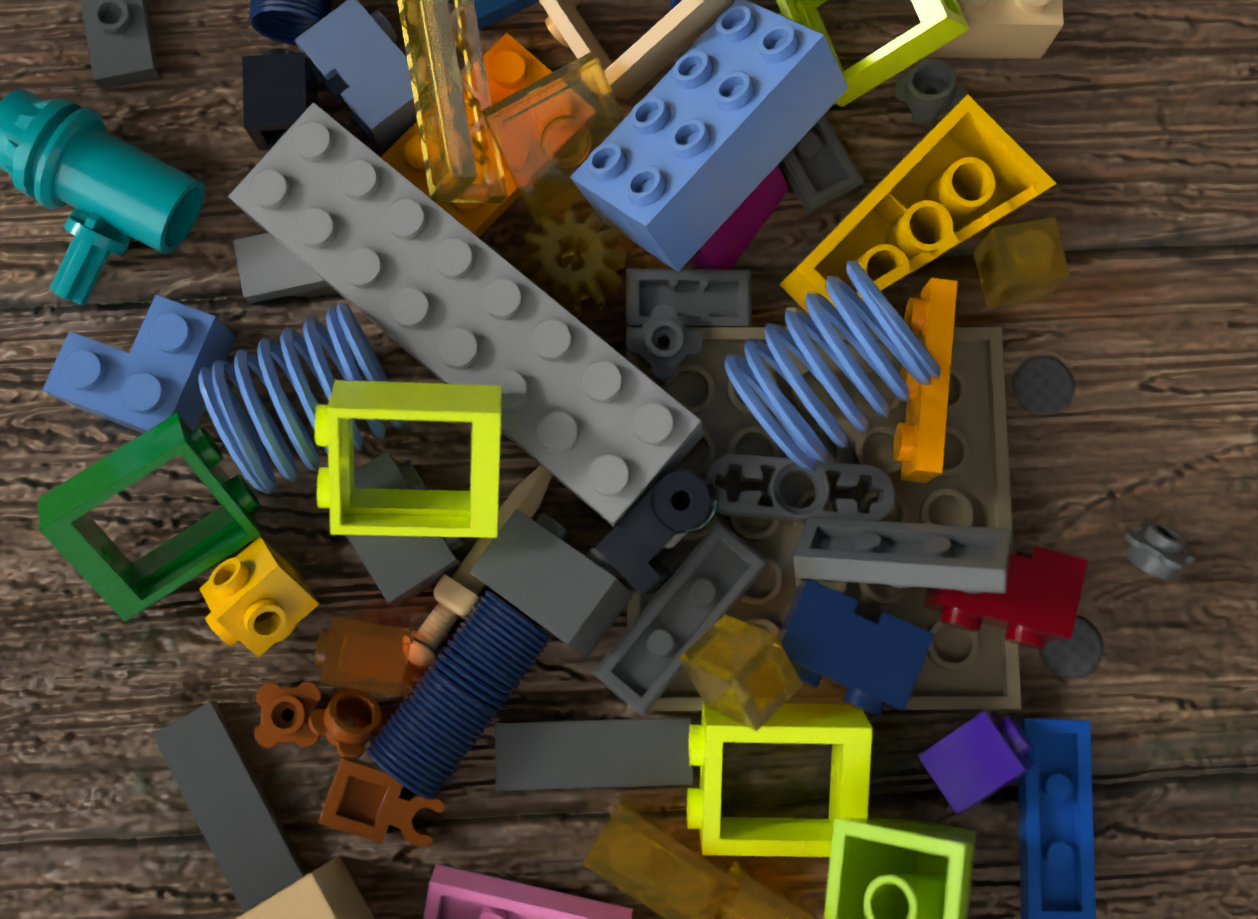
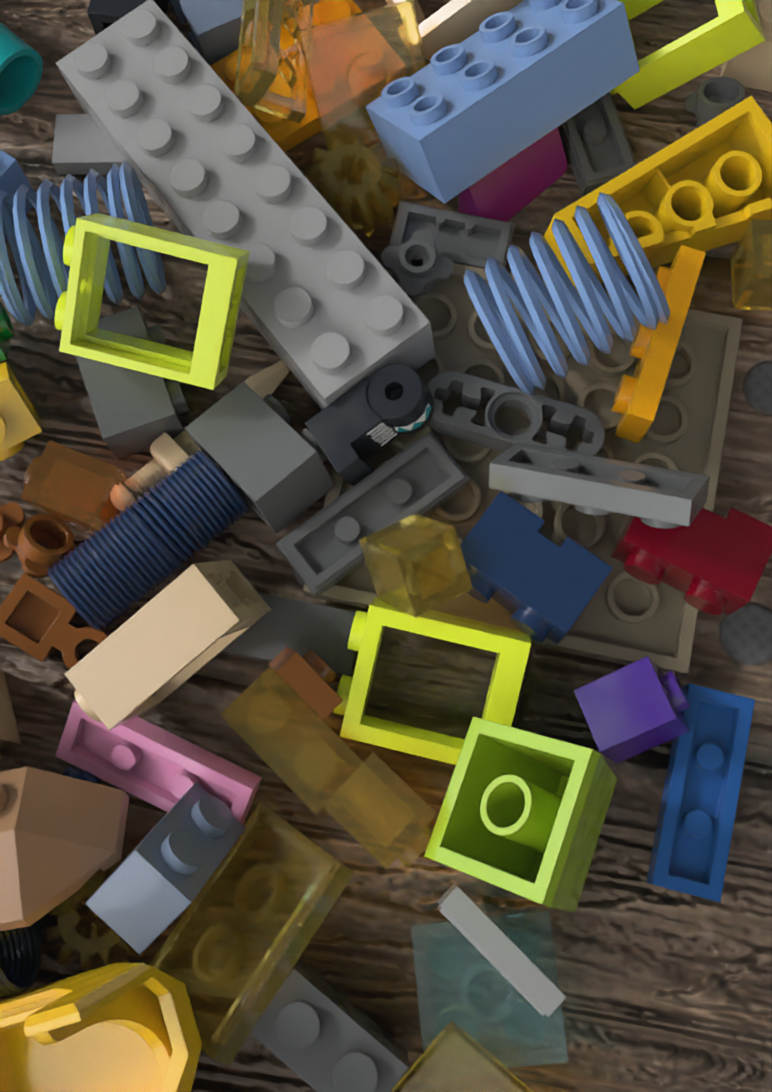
camera: 20 degrees right, 5 degrees down
(517, 808) = (166, 642): none -> tan window
(656, 804) = (308, 678): none -> dark orange plate

